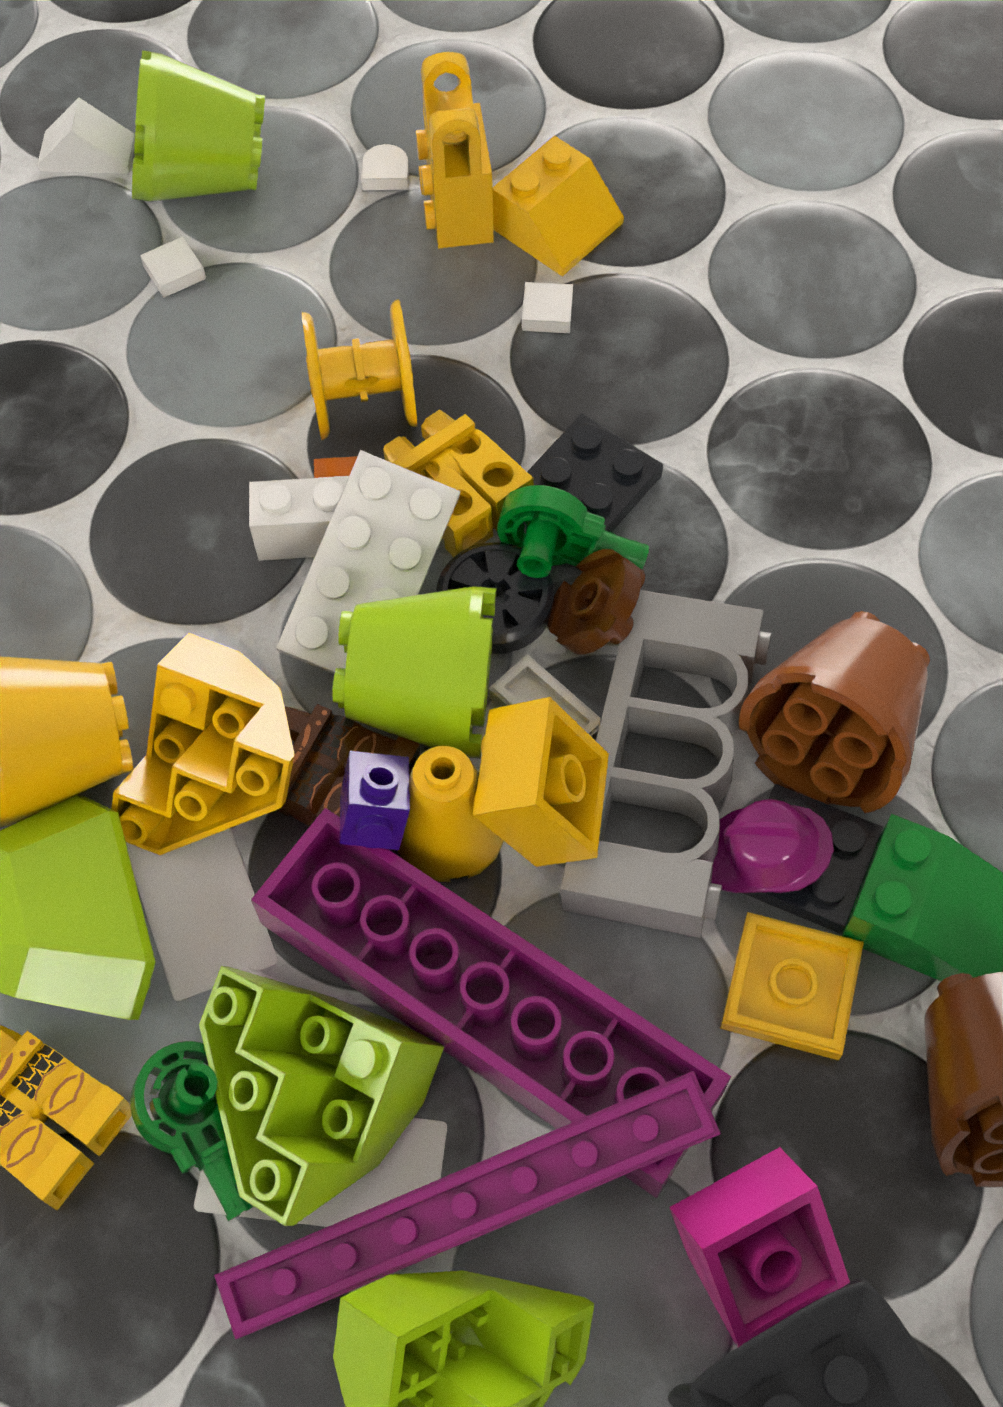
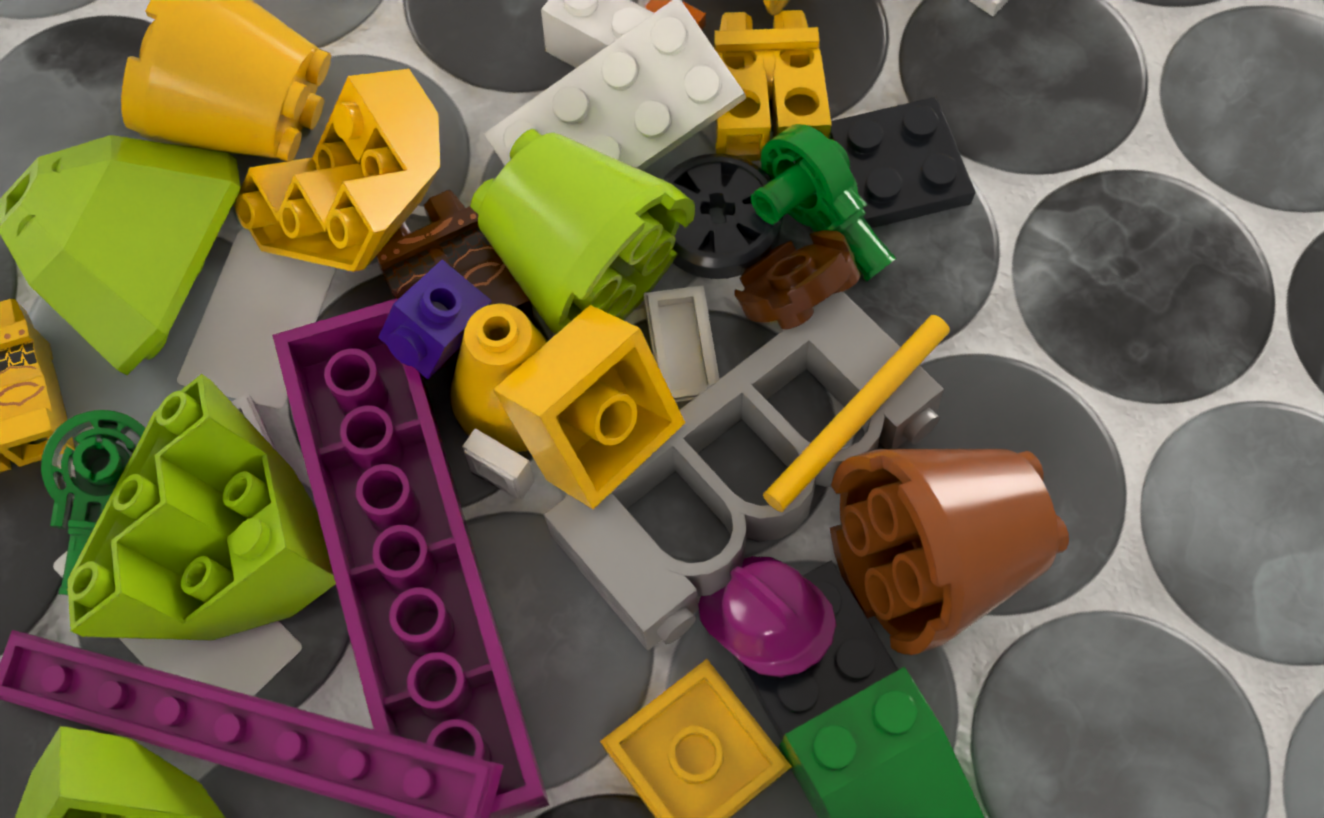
camera: 35 degrees right, 5 degrees up
(489, 881) = (498, 464): none -> white tile
(721, 666) = (856, 413): none -> yellow bar

